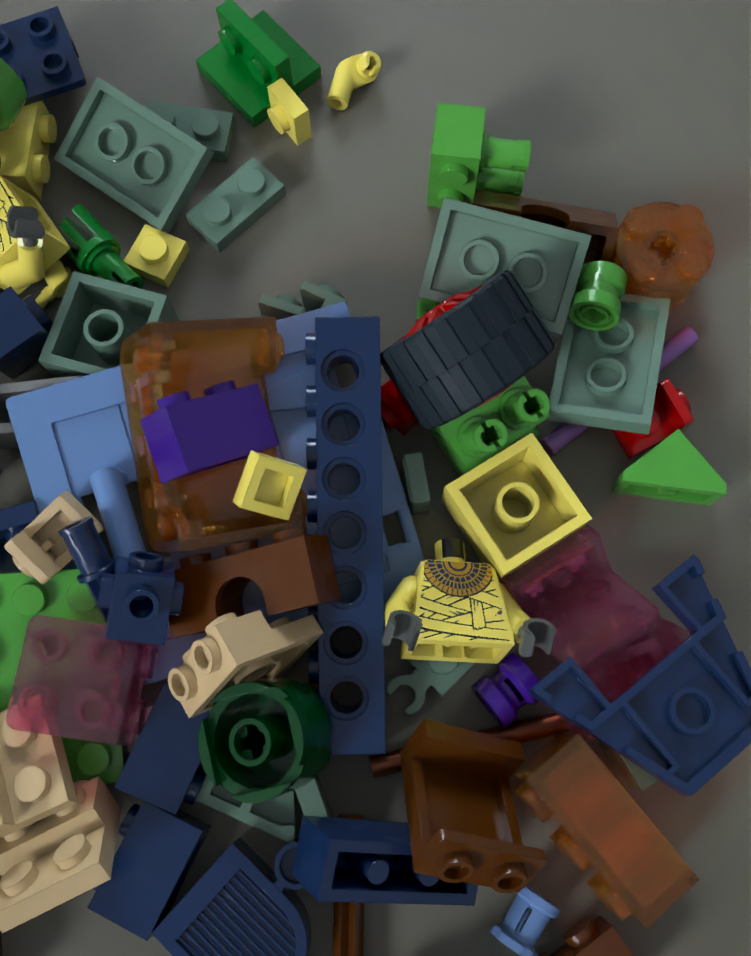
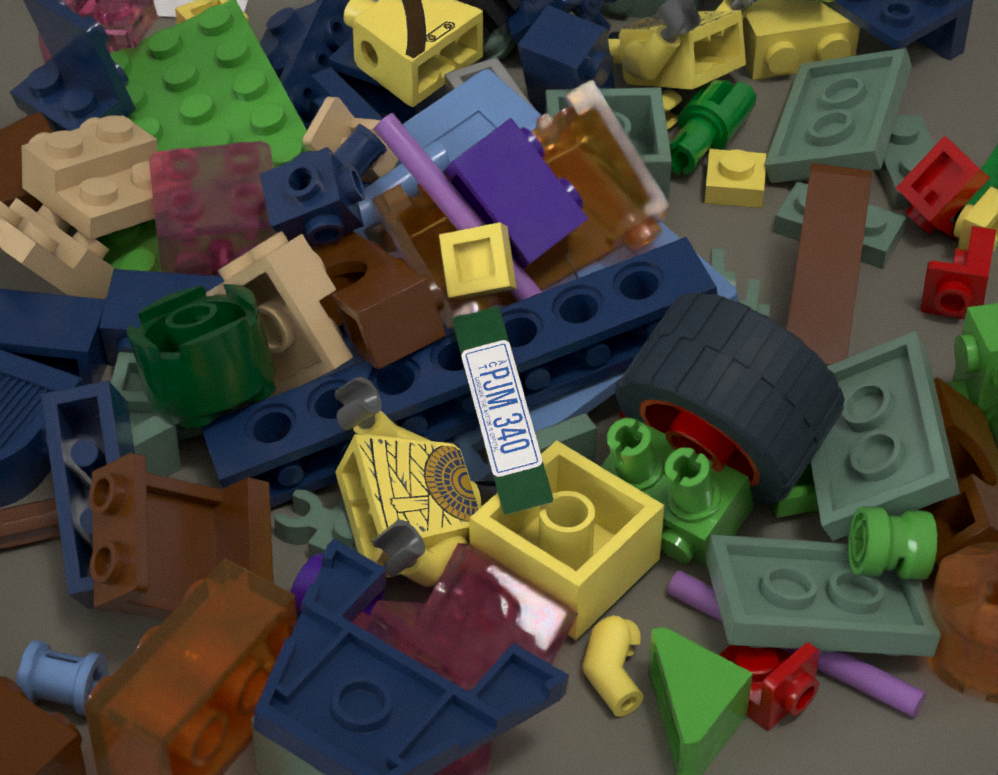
camera: 70 degrees right, 30 degrees down
(194, 486) = (442, 190): none -> medium lavender bar
(249, 118) = (941, 187): none -> red bracket
(324, 239) = (829, 259): none -> reddish brown slope
(334, 140) = (960, 284): none -> red bracket
(416, 517) = (502, 411): none -> sticker
(610, 519) = (604, 663): none -> light yellow arm

